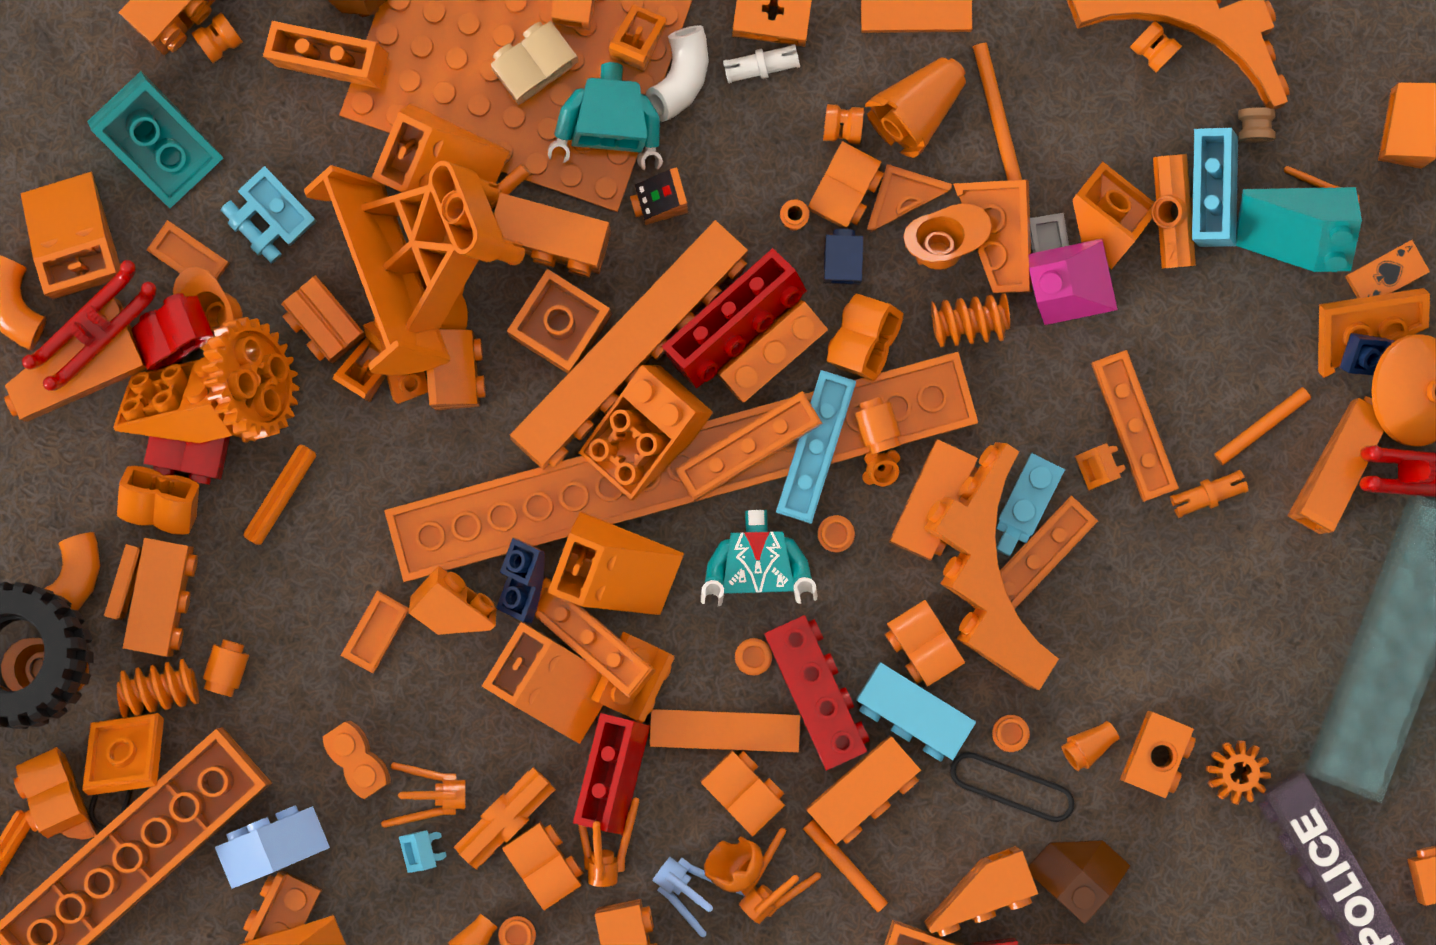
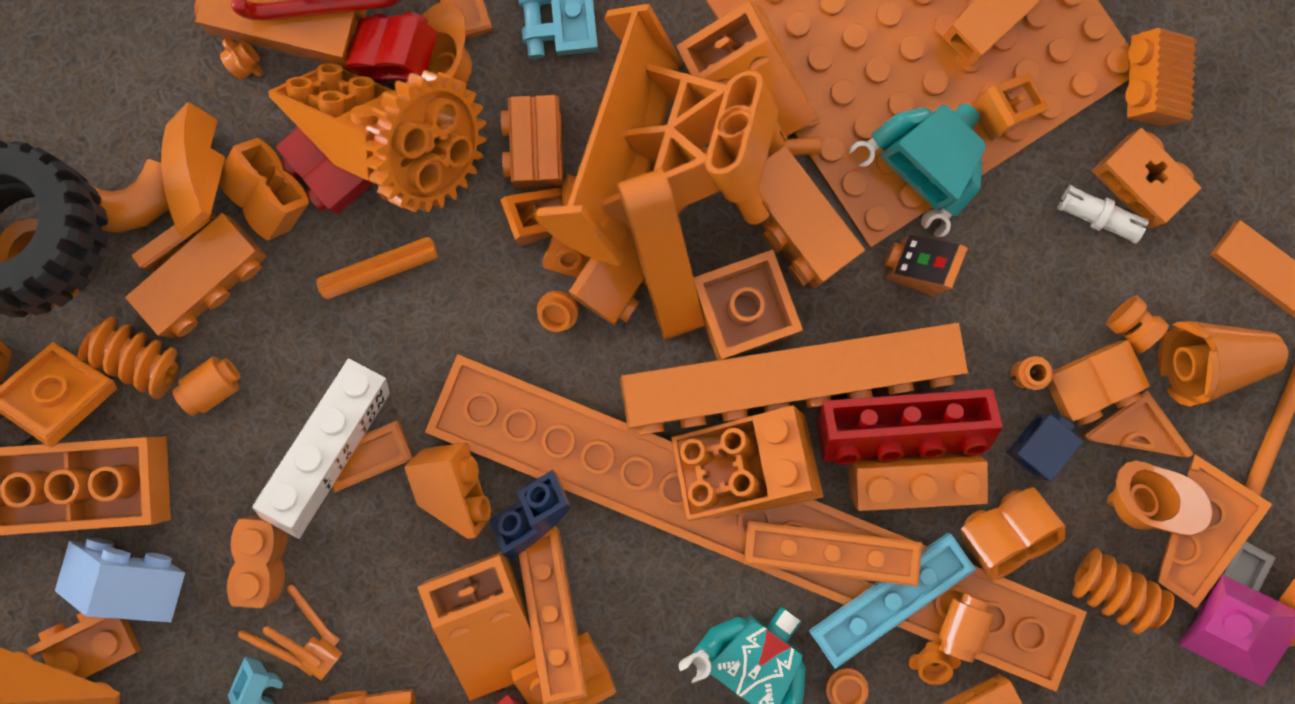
camera: 35 degrees right, 0 degrees up
(68, 421) = (240, 59): none -> orange plate
(98, 522) = (190, 167): none -> orange slope
(343, 643) = (322, 449): none -> white brick
(431, 426) = (557, 311): none -> orange plate
(475, 332) = (662, 252): none -> orange beam
(533, 62) = (902, 54): tan brick -> none
(614, 568) = (622, 569): orange slope -> none
(686, 73) = (1029, 170): white cylinder -> none

